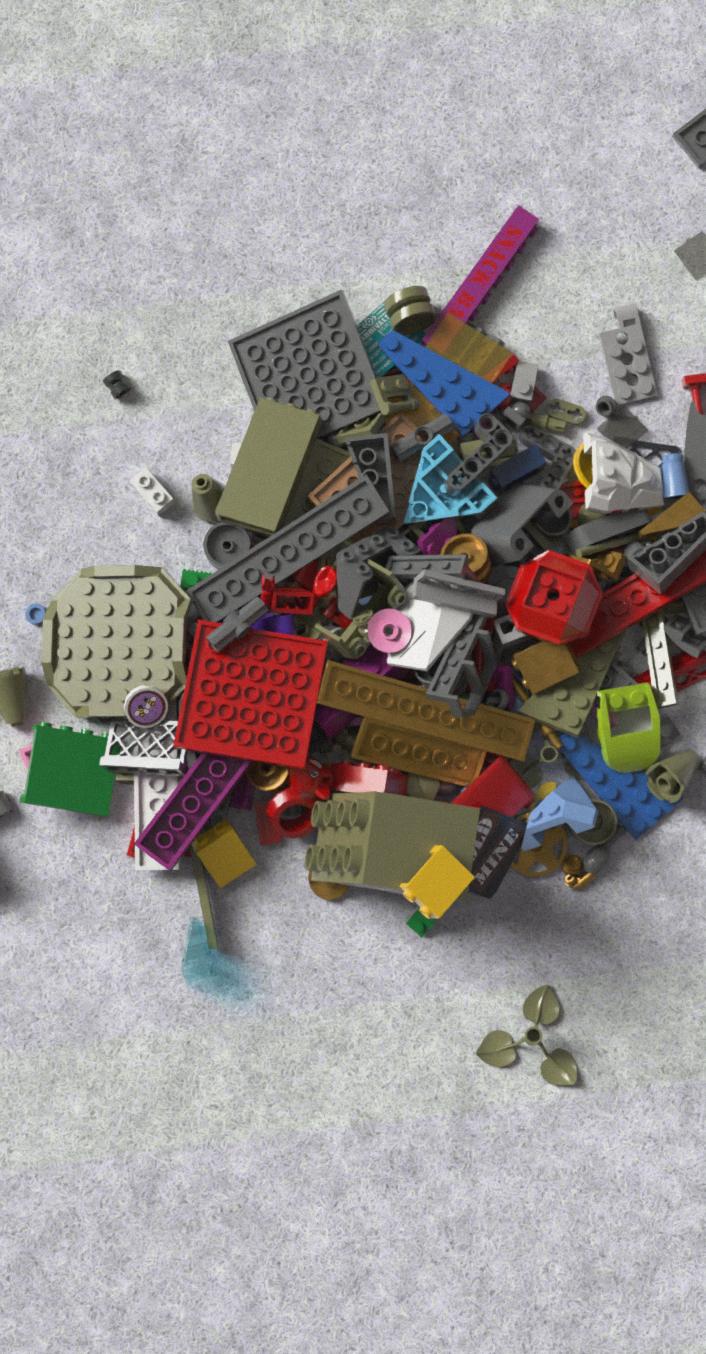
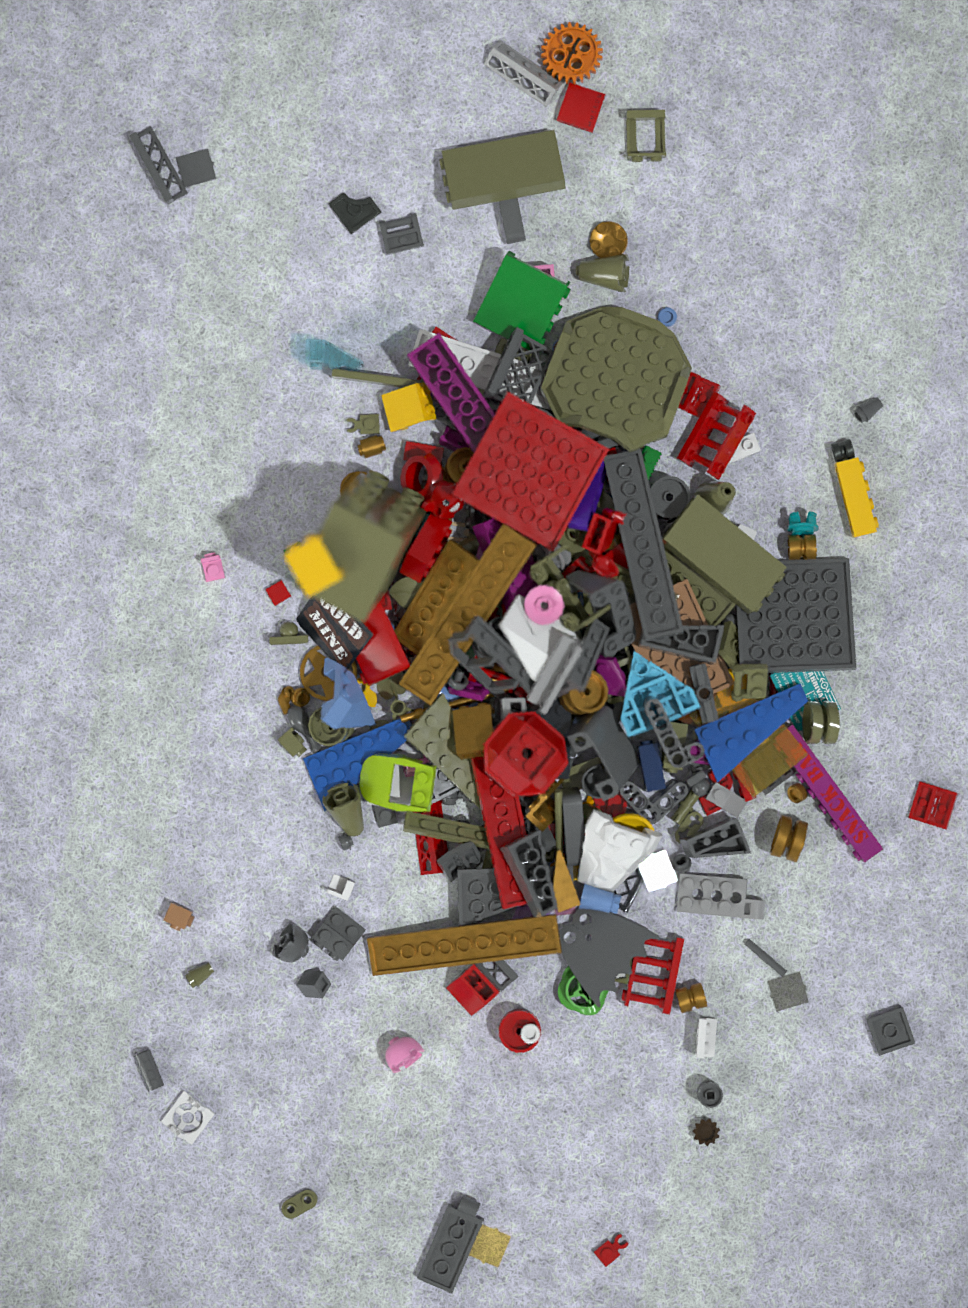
camera: 115 degrees right, 5 degrees up
(32, 985) = (354, 212): none -> pearl dark grey tile
(39, 1175) = (196, 168): none -> dark grey piece
(45, 922) = (401, 240): none -> dark grey plate
(51, 1226) = (150, 164): none -> dark grey fence
(65, 373) = (867, 410): none -> dark grey cone
(110, 545) = (706, 388): none -> red slope
(143, 536) = (703, 428): none -> red fence
(145, 706) = (551, 381): tile -> none
(162, 354) = (855, 497): none -> yellow brick
(214, 402) = (805, 528): none -> teal piece
(232, 392) = (802, 547): none -> pearl gold wheel
(237, 624) = (592, 479): dark grey piece -> none
(256, 893) = (368, 424): none -> olive plate
(278, 880) = (371, 446): none -> pearl gold brick
(462, 172) = (924, 803): none -> red slope
(466, 1007) = (212, 567): none -> bright pink bracket
(469, 927) = (278, 593): none -> red tile
(490, 313) = (797, 793): none -> pearl gold tile
(511, 899) = (288, 633): none -> olive tile
(538, 1007) = (191, 630): olive plant -> none
(542, 303) = (792, 839): none -> pearl gold wheel
(569, 377) = (716, 840): none -> dark grey wedge
(624, 856) = (293, 743): none -> olive brick
(672, 288) = (765, 957): none -> dark grey piece

